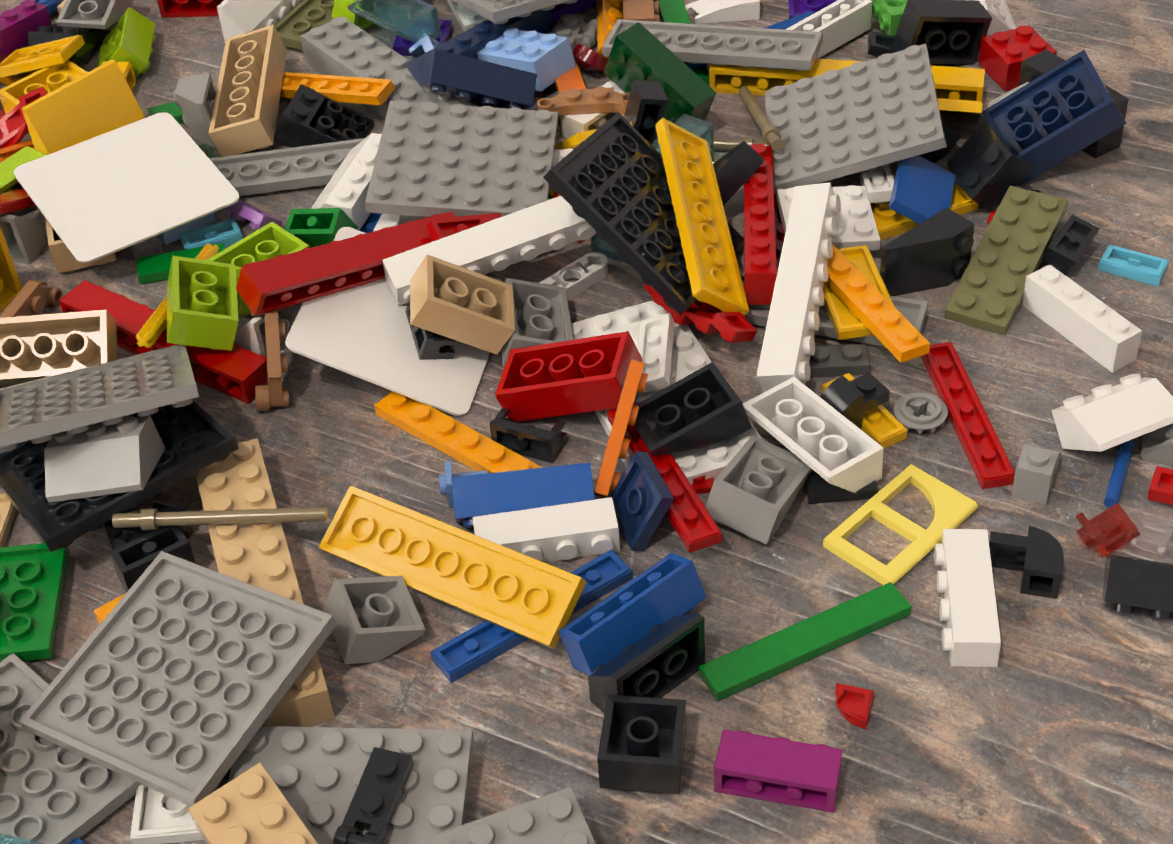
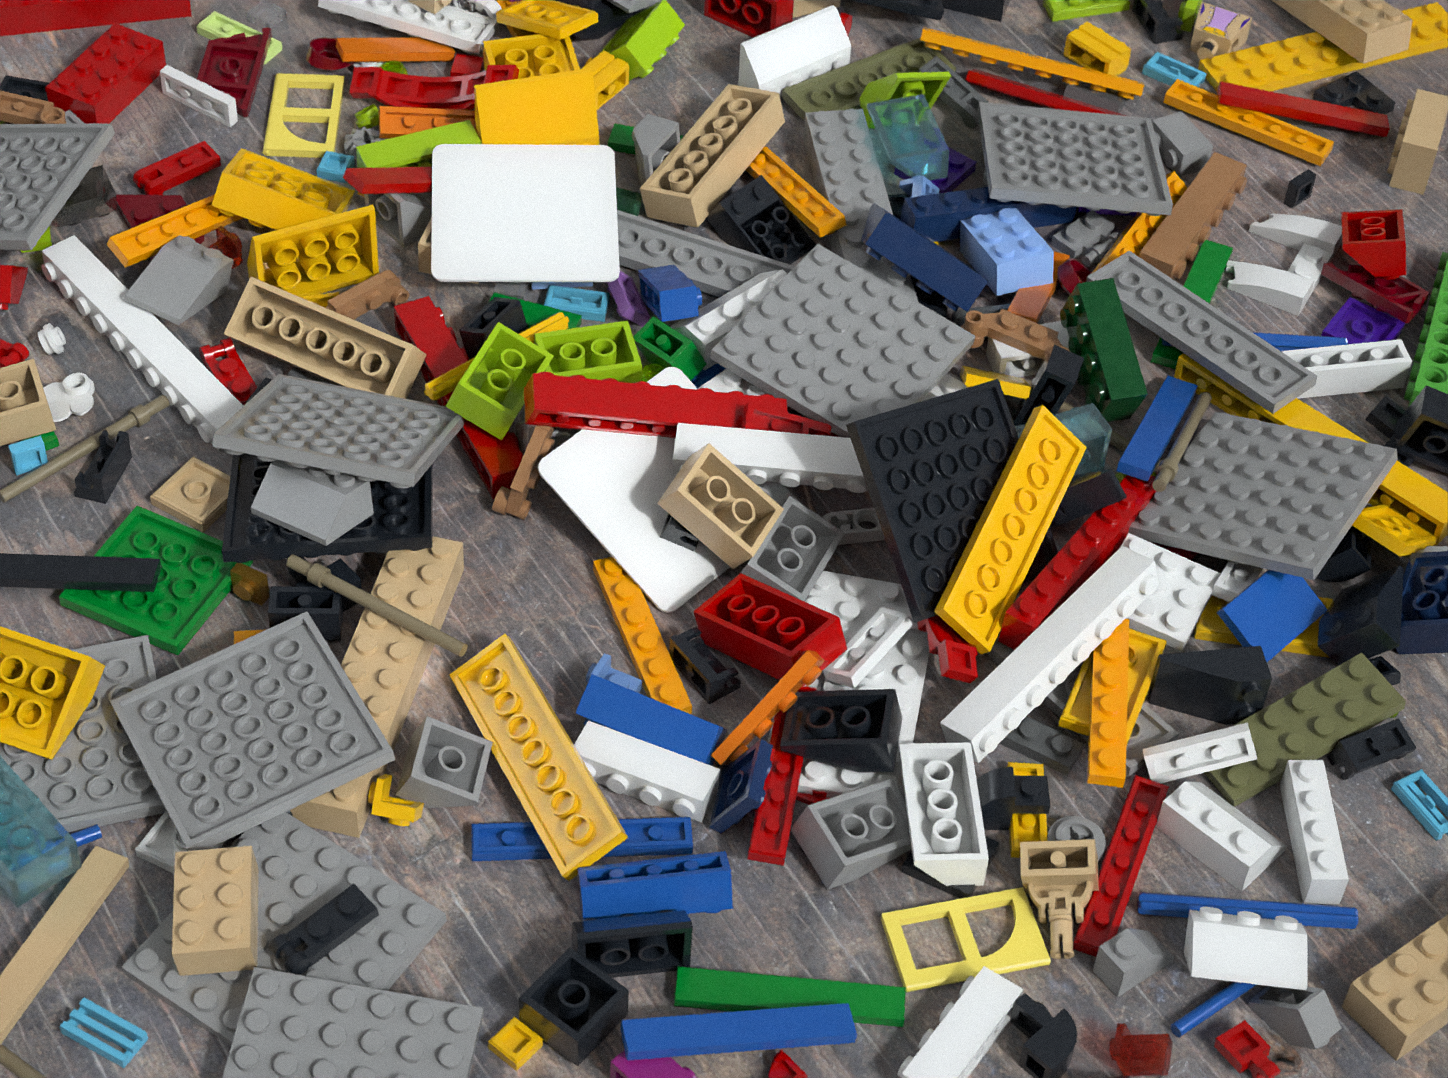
camera: 25 degrees right, 5 degrees up
(81, 565) = (249, 584): none -> pearl gold plate
(152, 277) = (479, 327): none -> black brick
(289, 190) = (669, 293): none -> blue brick
(357, 675) = (397, 810): none -> yellow bracket
(610, 807) = (515, 1043): none -> yellow tile
(737, 118) = (1156, 428): none -> blue tile
(795, 686) = (737, 1031): none -> blue tile
(942, 444) = (1060, 879): none -> tan brick
(960, 303) = (1200, 753): none -> white plate
(1017, 356) = (1218, 834): none -> white slope
(1042, 412) = (1306, 914): none -> blue axle

